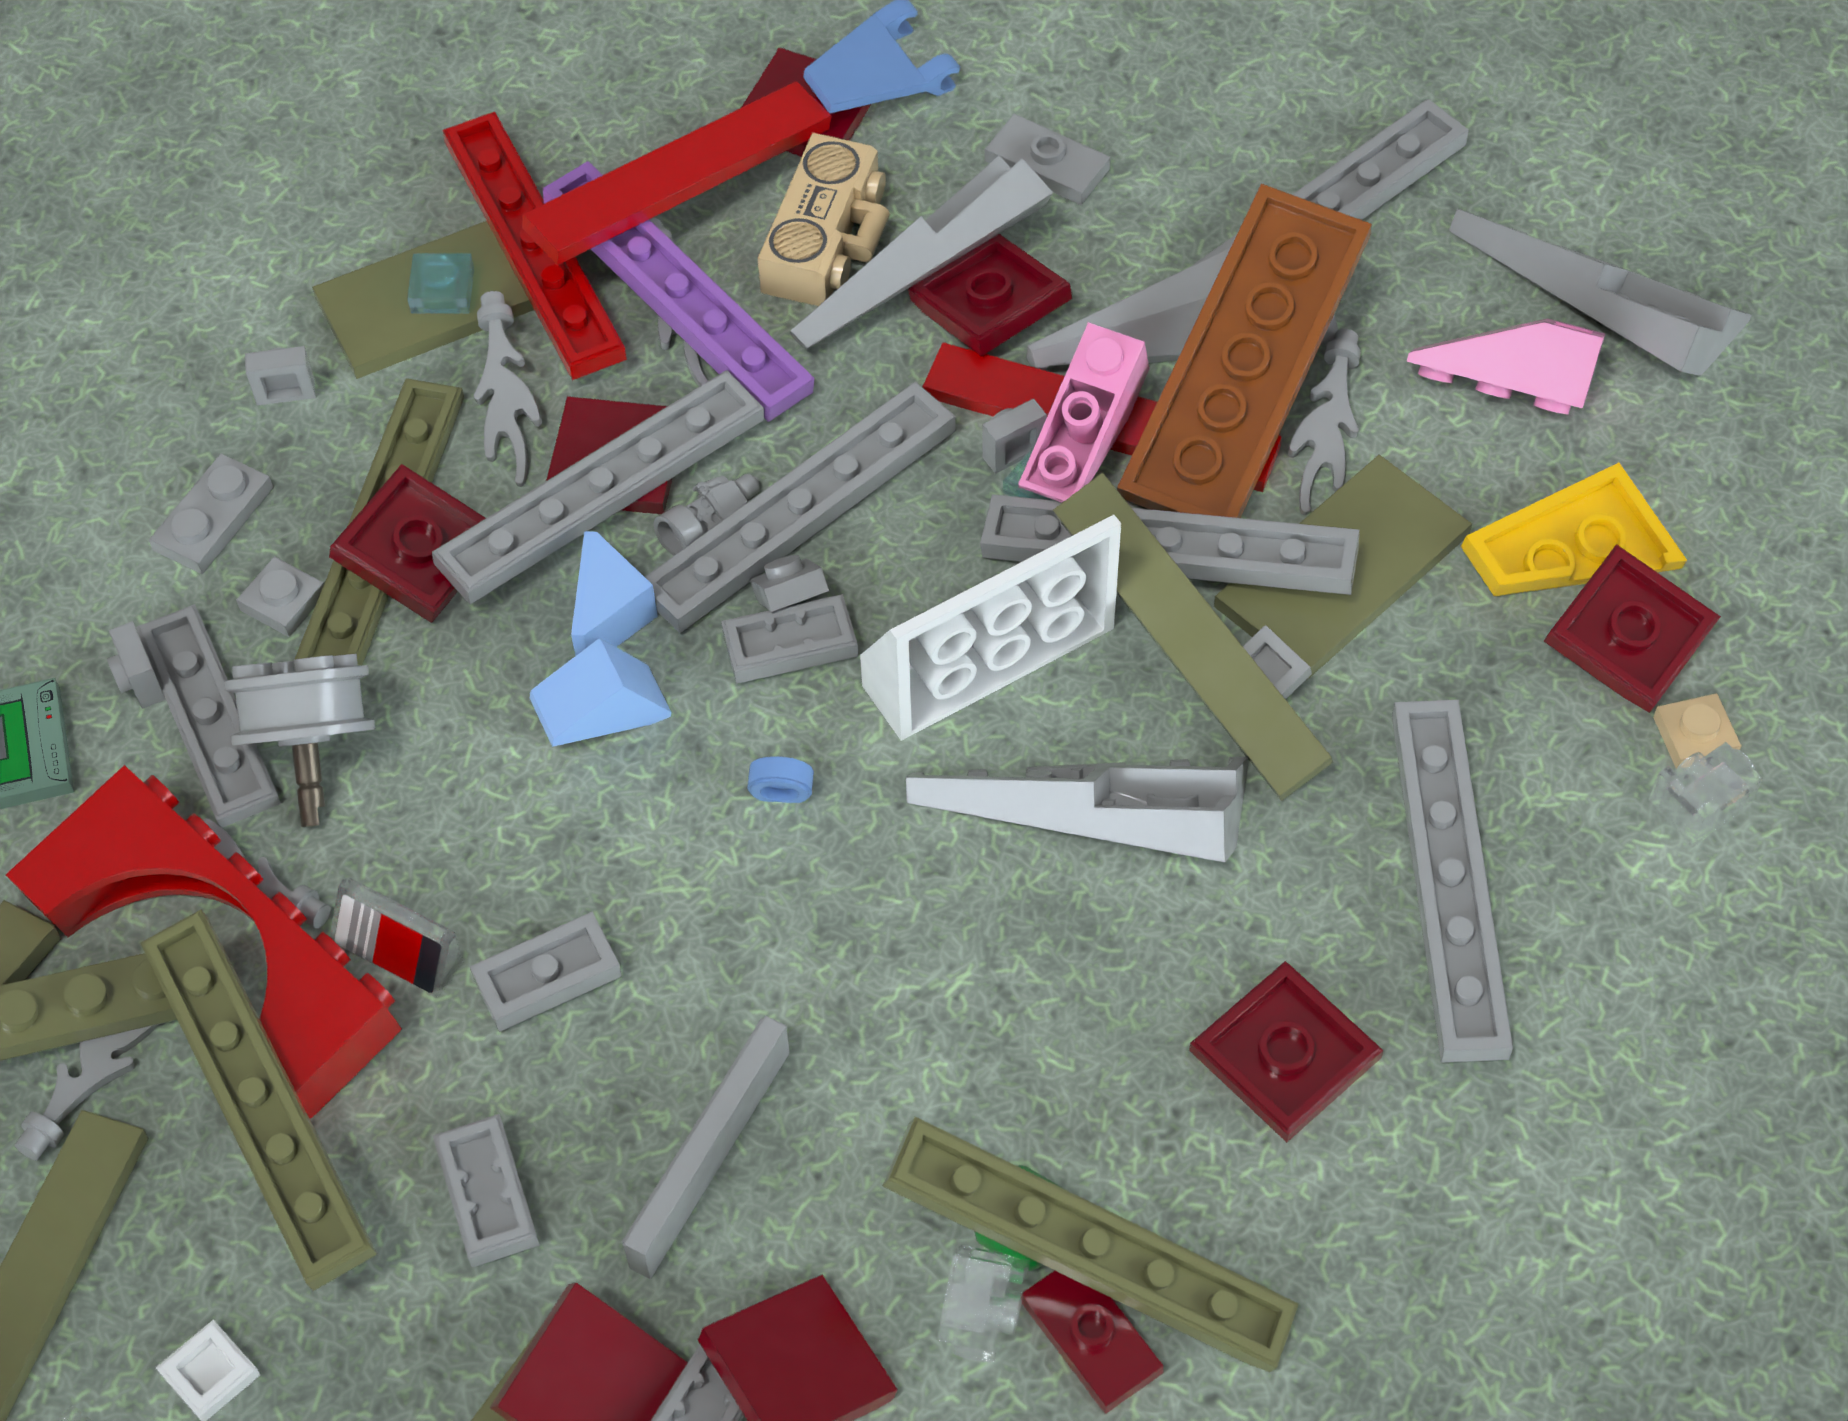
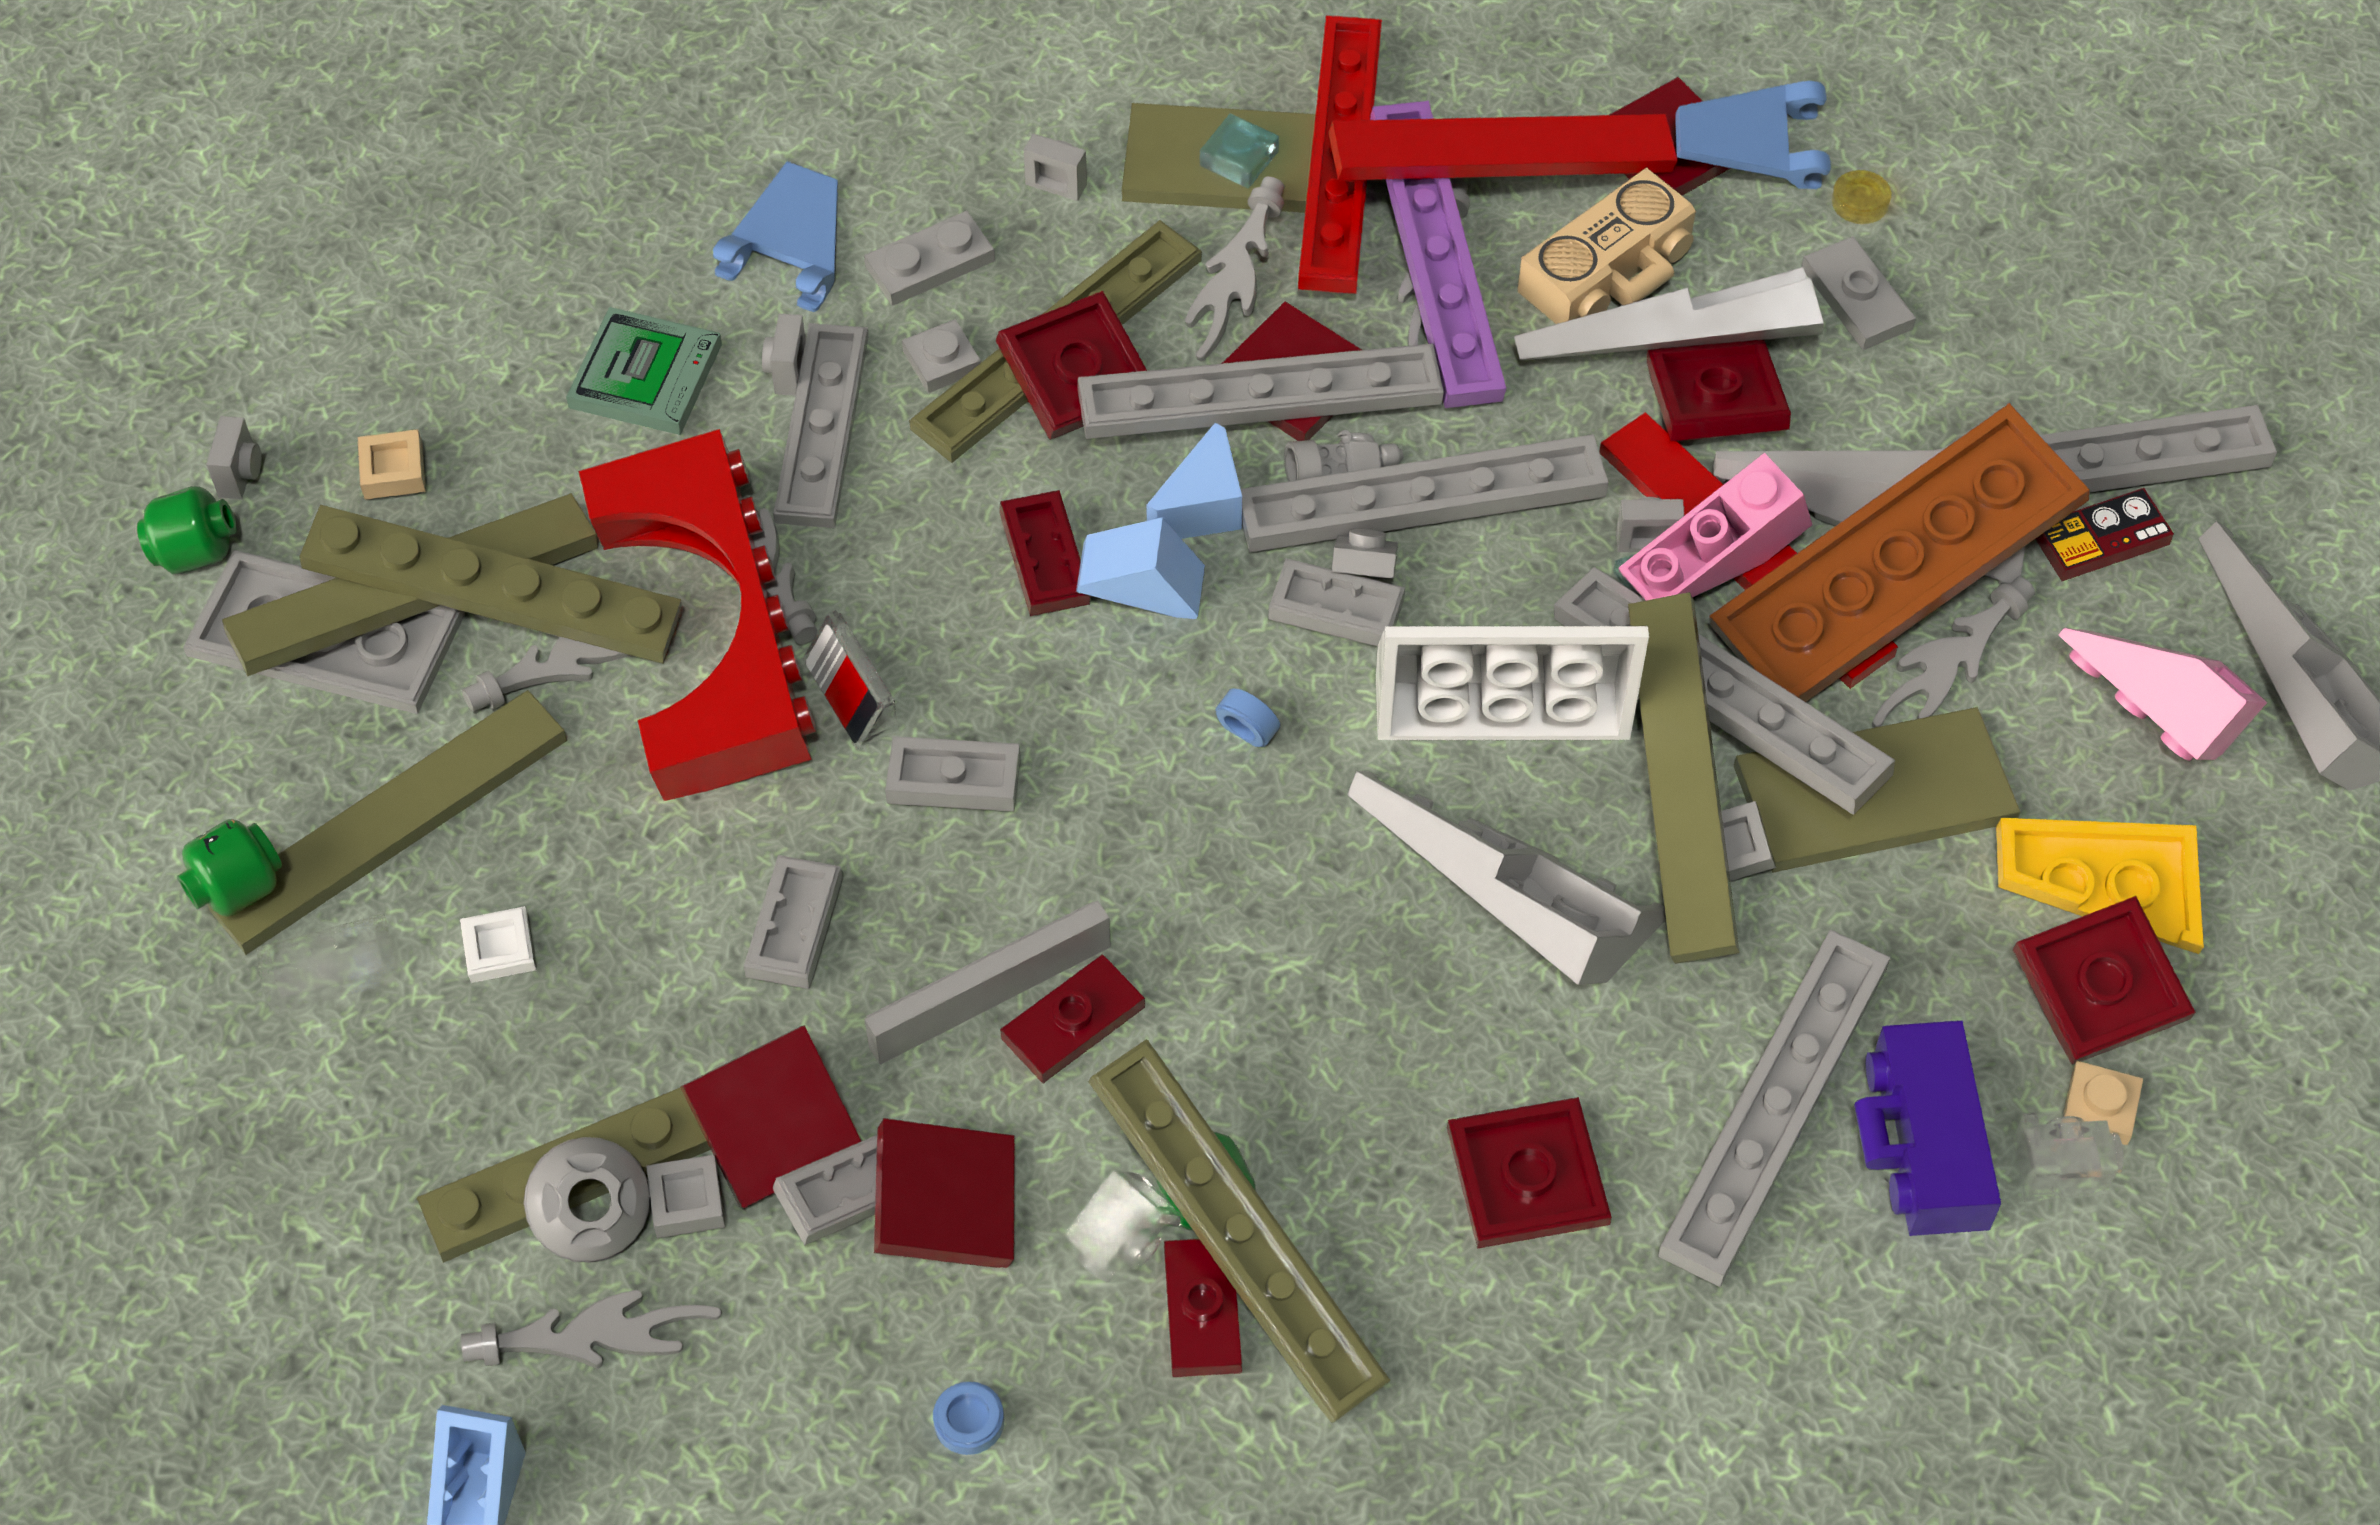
camera: 30 degrees right, 0 degrees up
(58, 543) = (792, 224): none -> medium blue flag
(258, 1101) = (655, 750): olive tile -> none
(299, 707) = (886, 452): light grey wheel -> none
(496, 726) = (1043, 552): none -> dark red plate
(801, 1137) = (1072, 1018): none -> dark red plate
(995, 78) = (1861, 197): none -> clear yellow tile
(1386, 260) = (2105, 534): none -> tile
(1594, 821) = (1943, 1145): none -> dark purple piece

